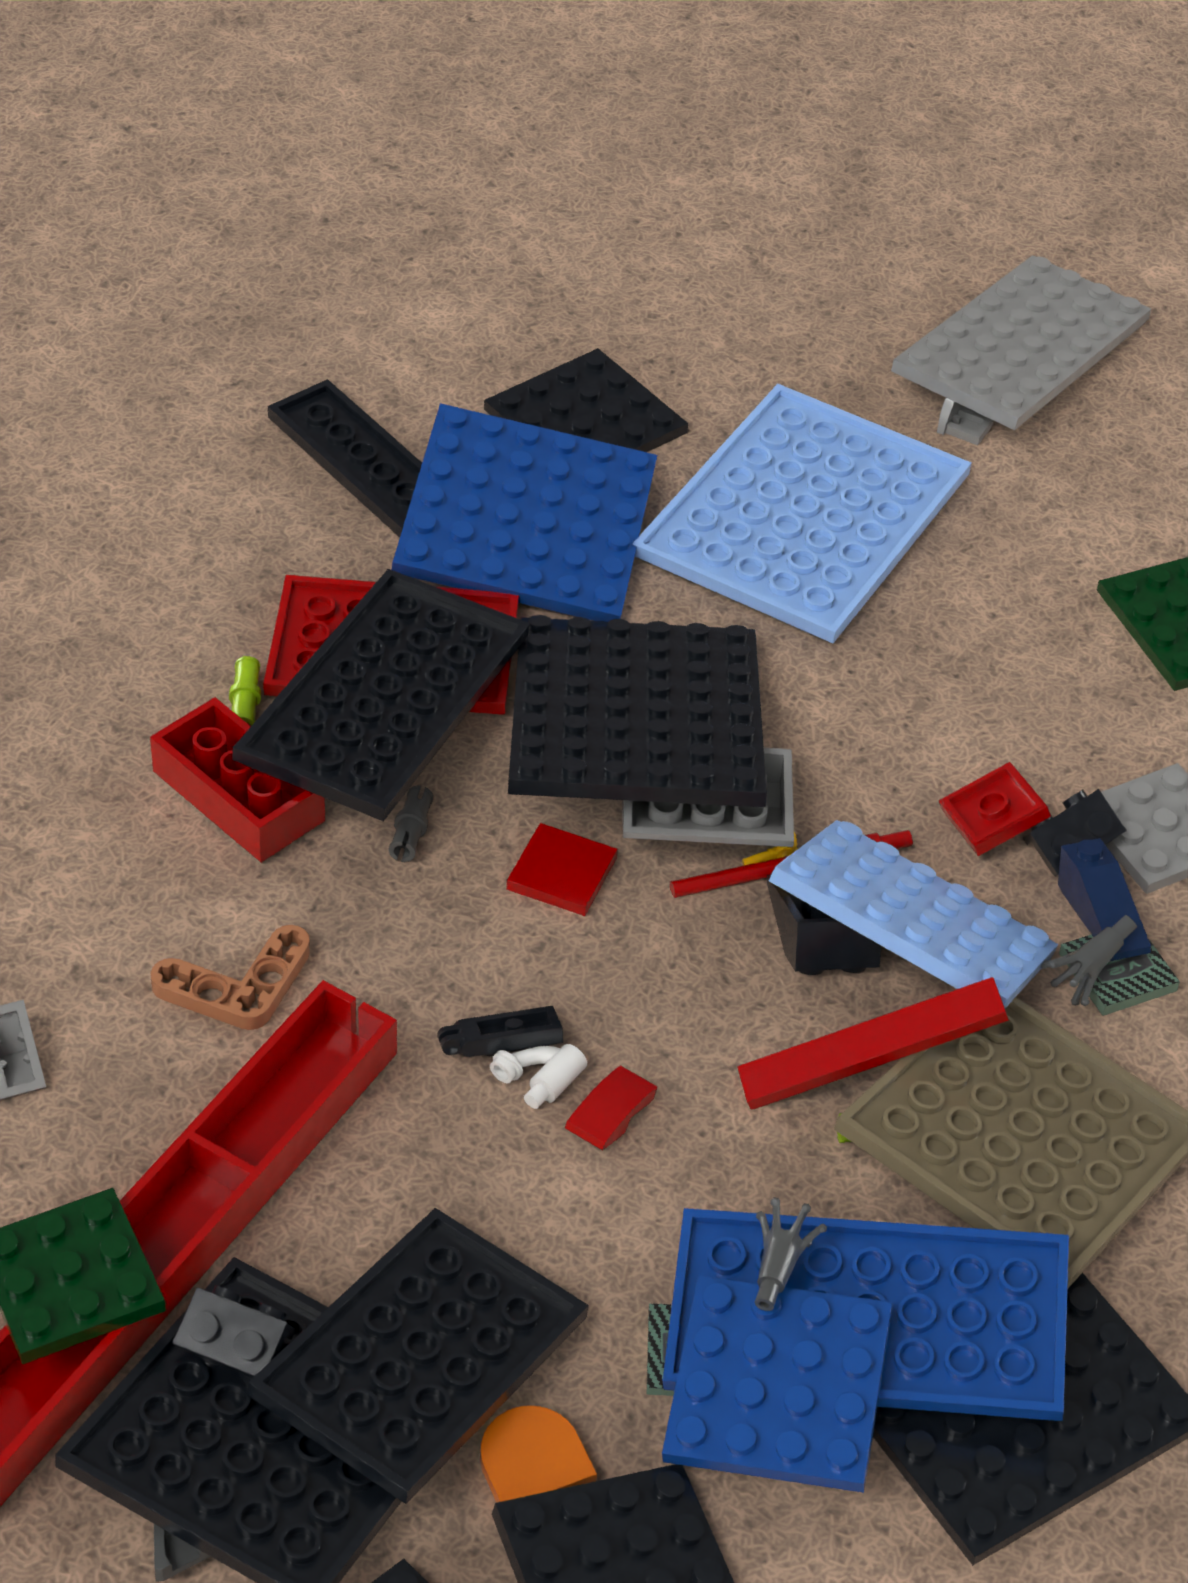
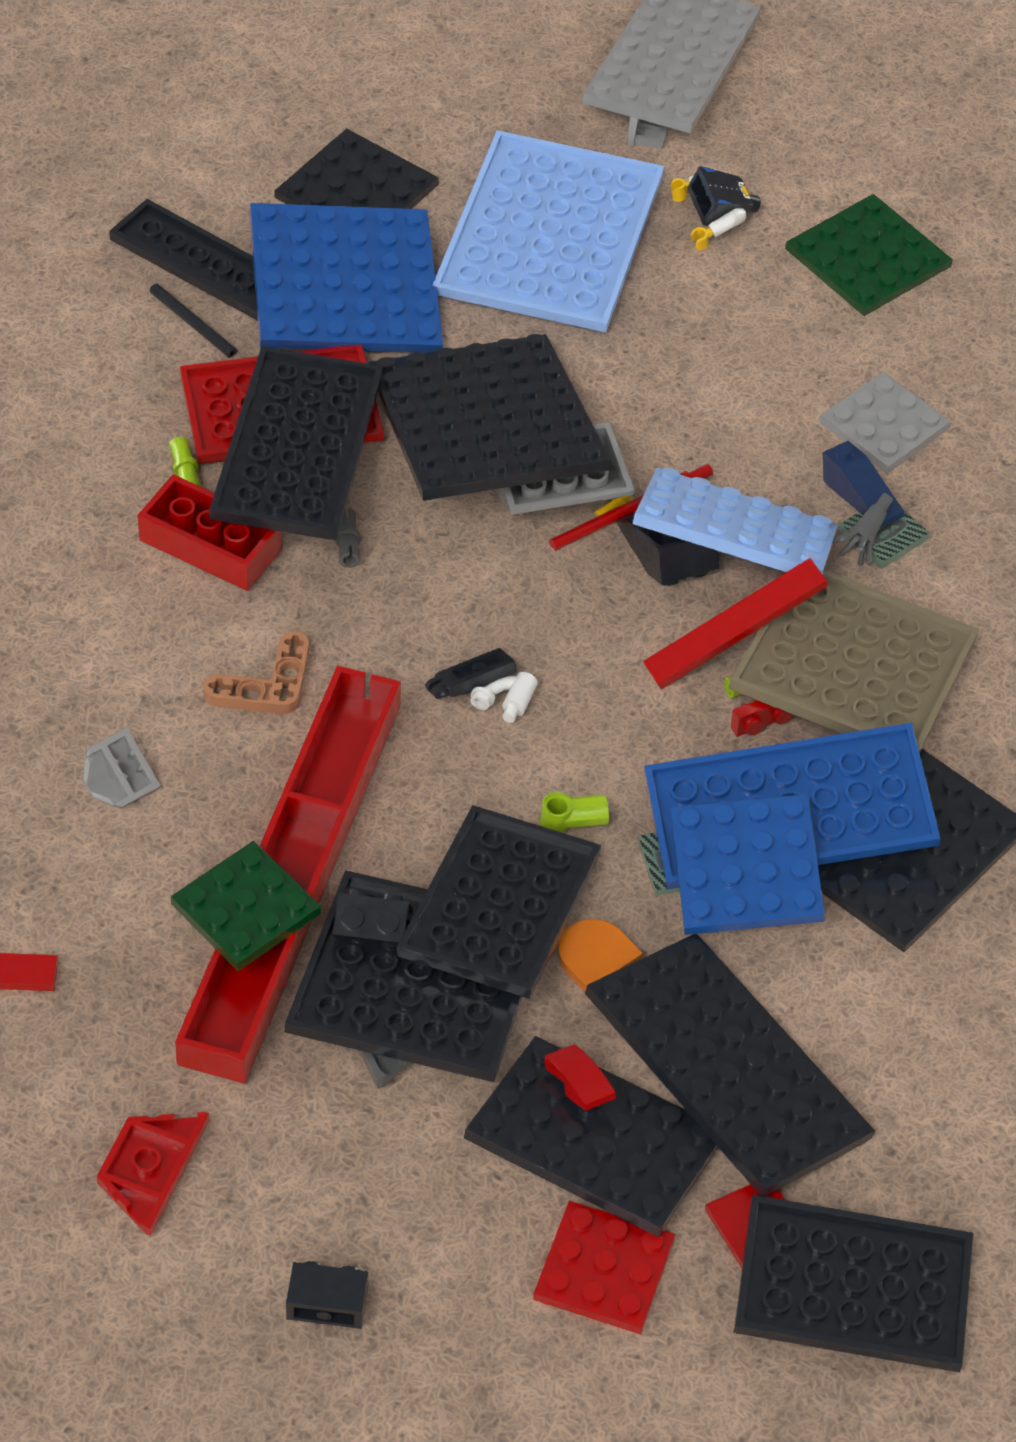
camera: 15 degrees left, 5 degrees up
(328, 527) = (193, 320): none -> black piece
(562, 869) = (468, 547): red tile -> none
(570, 1249) = (563, 812): none -> lime piece
(609, 1106) = (565, 709): red slope -> none
(780, 1253) = (724, 778): dark grey piece -> none
(862, 1175) = (754, 716): none -> red plate
(994, 808) = (764, 434): red tile -> none
(1025, 516) = (719, 200): none -> black torso
(1082, 820) = (831, 429): black bracket -> none

